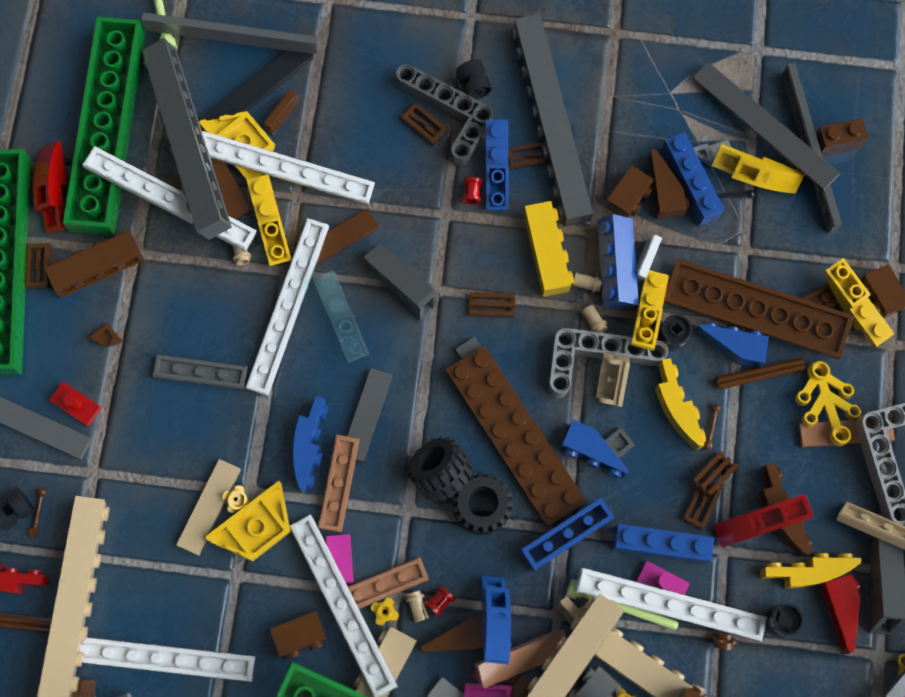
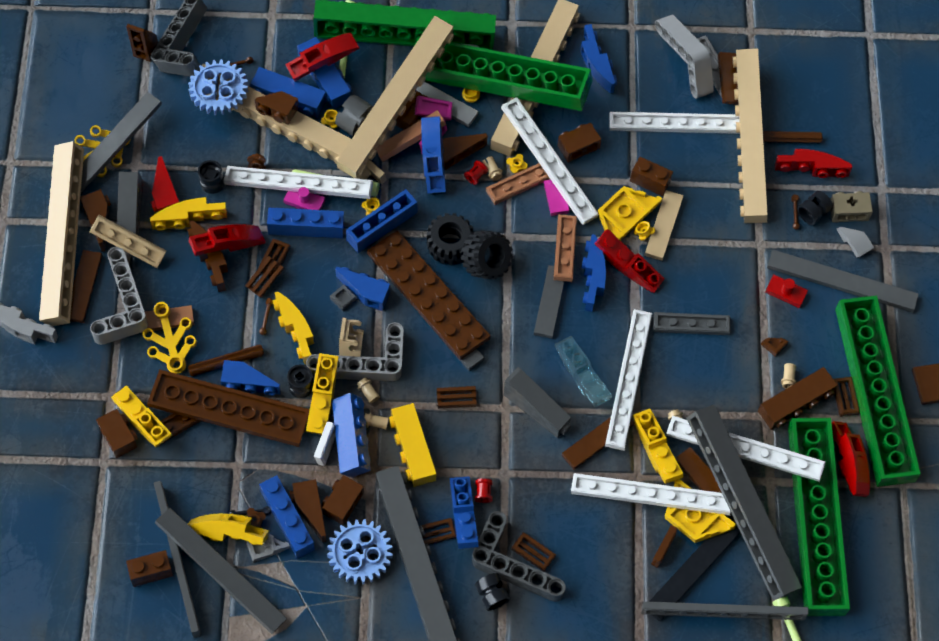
camera: 175 degrees right, 10 degrees down
(98, 293) = (789, 375): none -> tan pin
(212, 573) = (651, 176): none -> reddish brown brick
(262, 453) = (628, 263): none -> red slope
(569, 561) = (374, 201): none -> yellow plate
(606, 119) = (352, 535): none -> light blue gear
(726, 183) = (259, 517): none -> reddish brown plate

